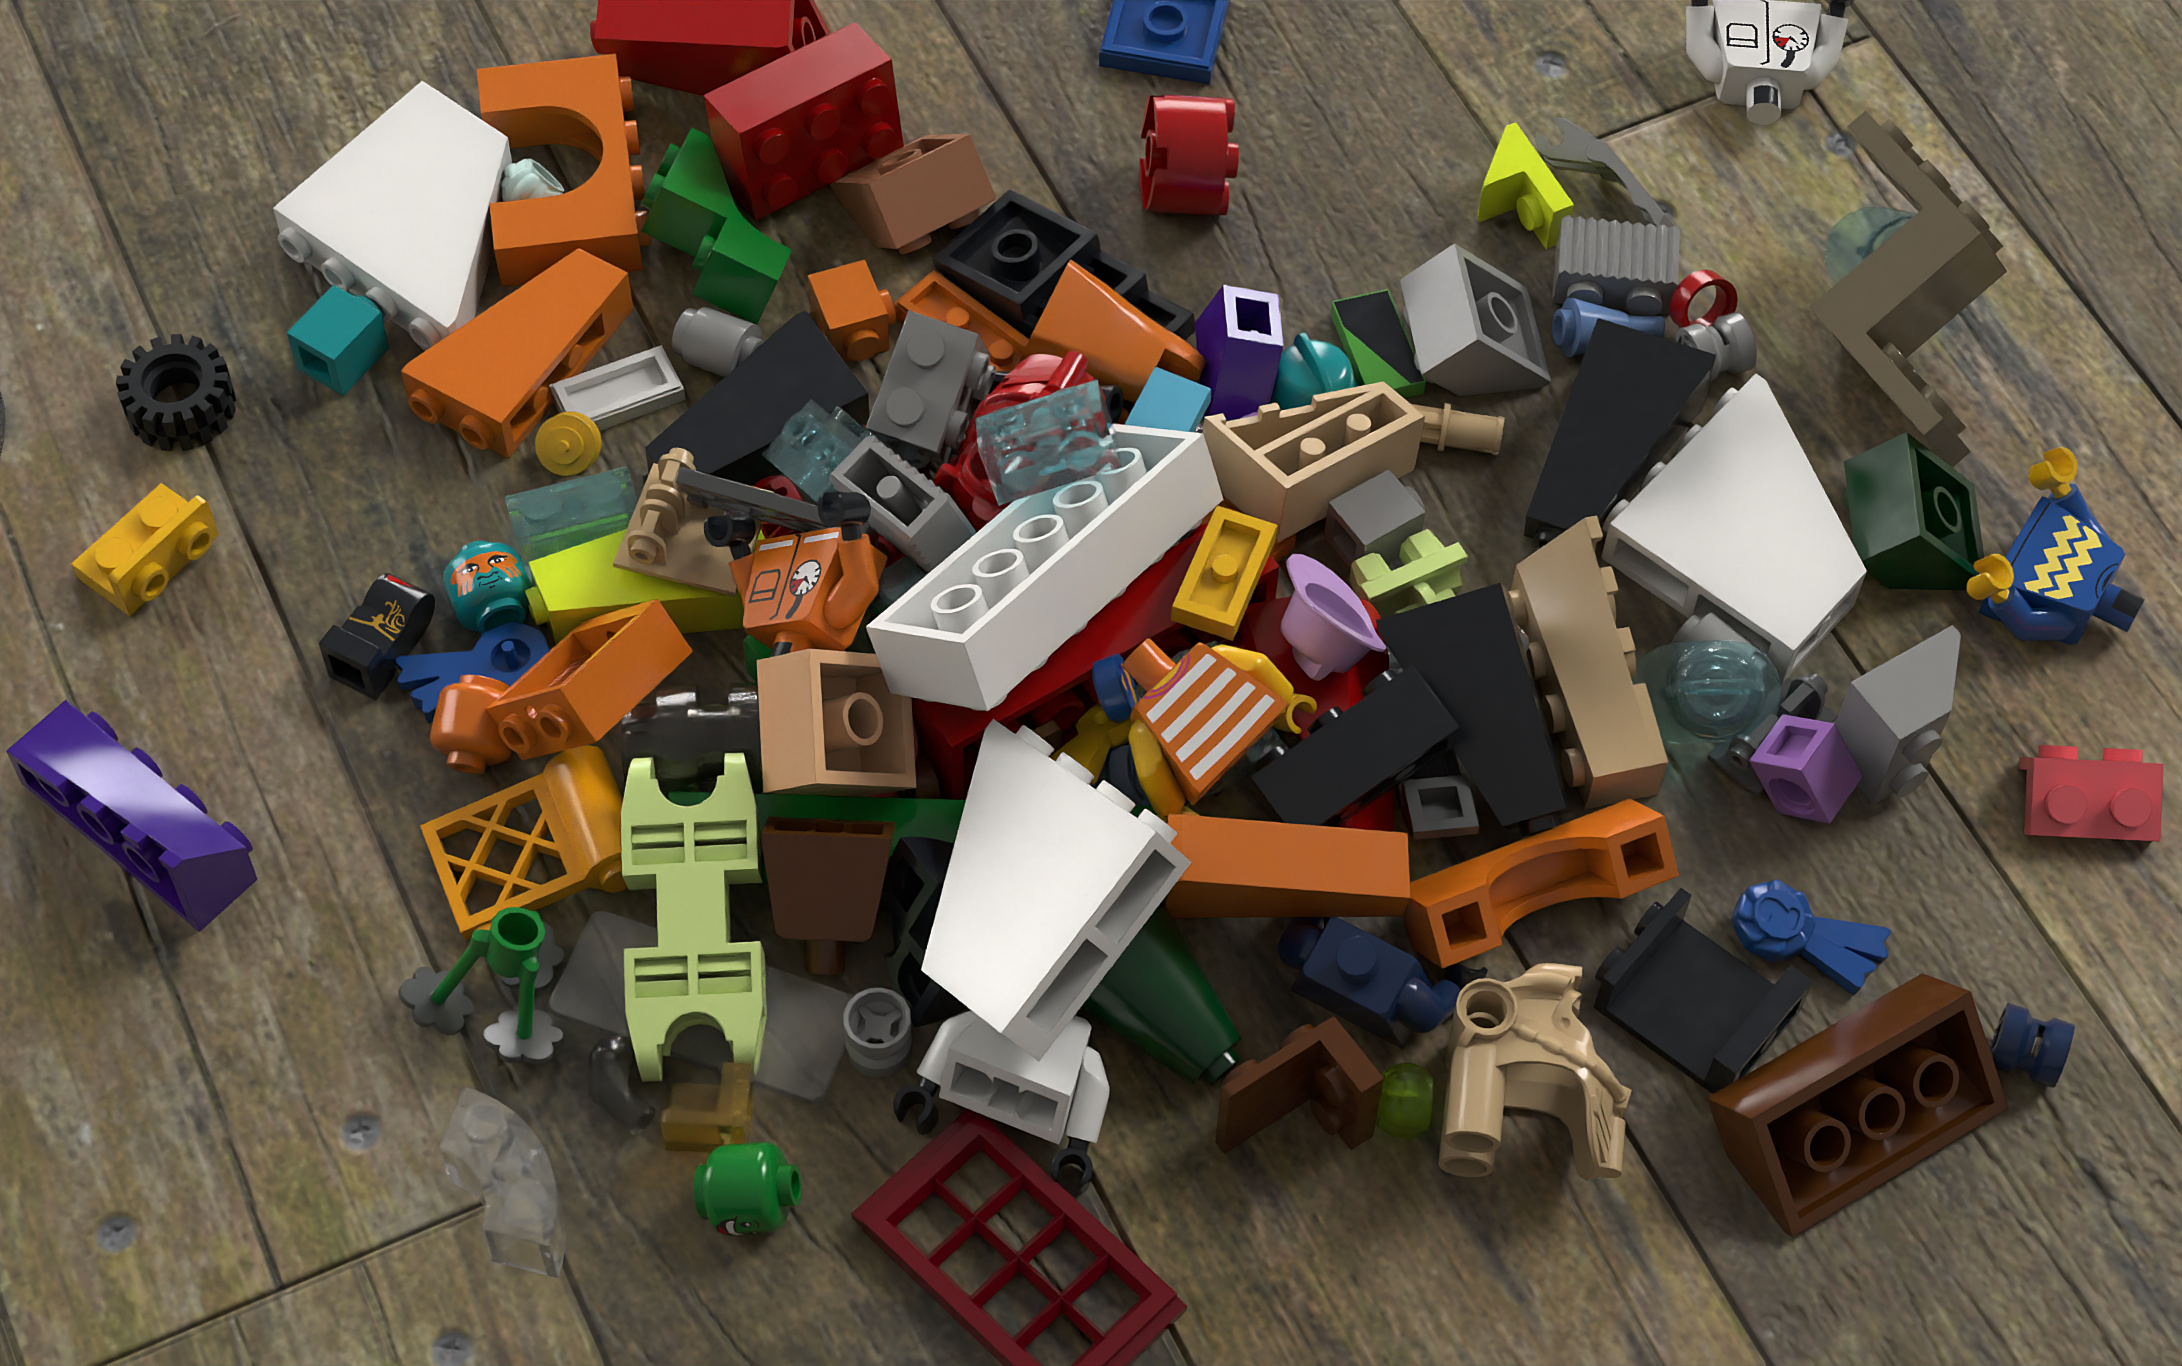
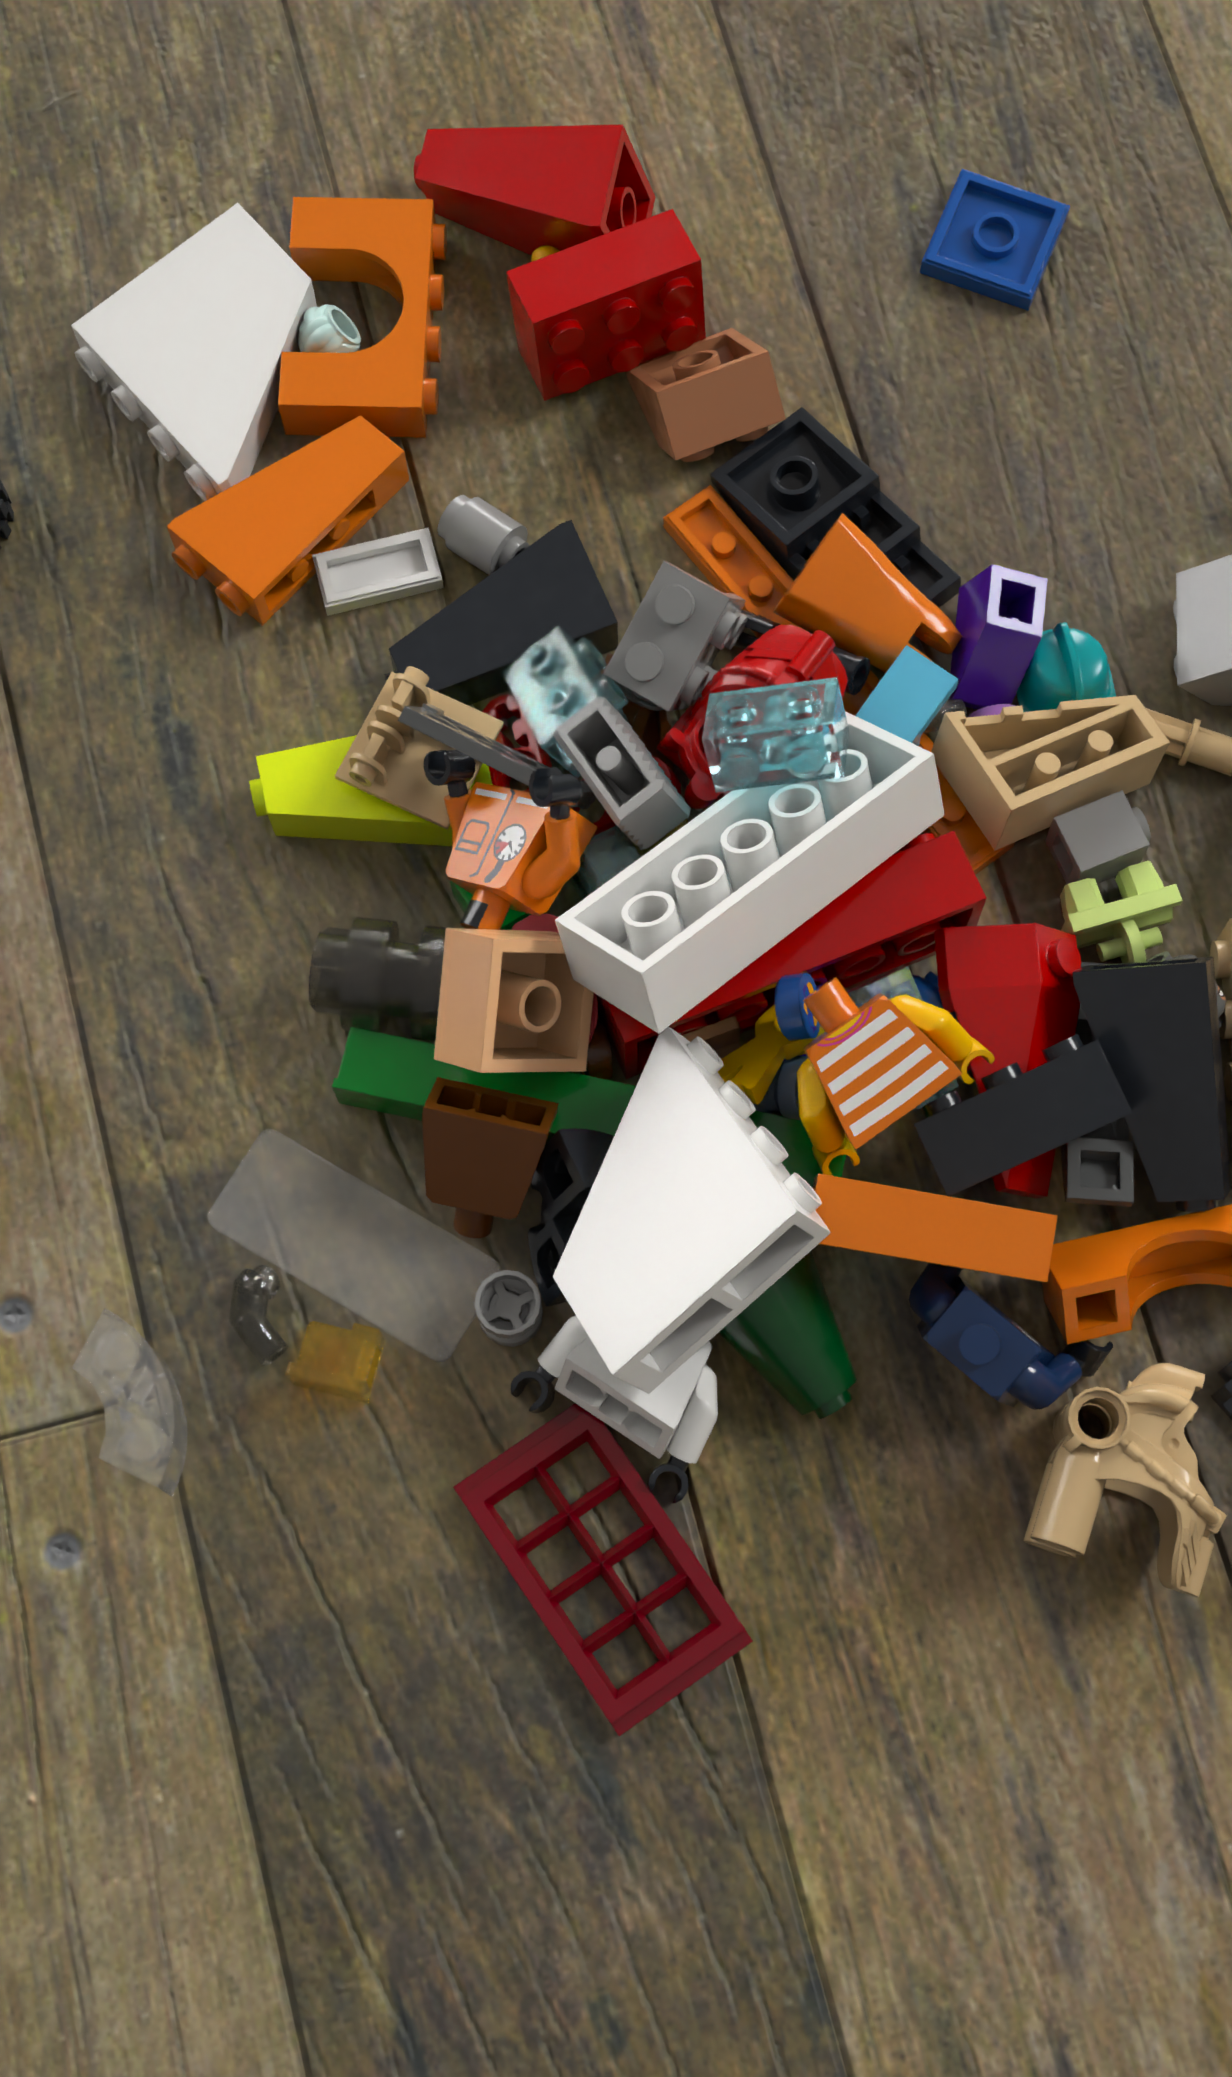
camera: 15 degrees right, 15 degrees up
(338, 339) = (117, 474): teal brick -> none
(376, 634) = (106, 802): black leg -> none
(464, 726) = (181, 915): orange head -> none
(487, 586) = (217, 769): teal head -> none
(500, 654) = (222, 848): blue piece -> none
(522, 954) = (174, 1175): plant -> none
(568, 443) = (318, 625): yellow wheel -> none
(570, 513) = (305, 709): clear light blue brick -> none
(583, 815) = (269, 1040): light orange piece -> none
(589, 680) = (291, 900): orange window -> none
(696, 968) = (349, 1166): yellowish green piece -> none
(698, 216) = (484, 395): green arch -> none
(746, 1188) = (357, 1449): green head -> none
(851, 310) = (619, 523): orange brick -> none
(1187, 154) = (987, 399): red brick -> none
(1224, 572) = (928, 902): yellow plate -> none
(1310, 1065) = (942, 1455): reddish brown bracket -> none
(1325, 620) = (1024, 966): lavender piece -> none
(1377, 342) = (1140, 639): black tile -> none
(1405, 1101) = (1001, 1470): clear neon green piece -> none

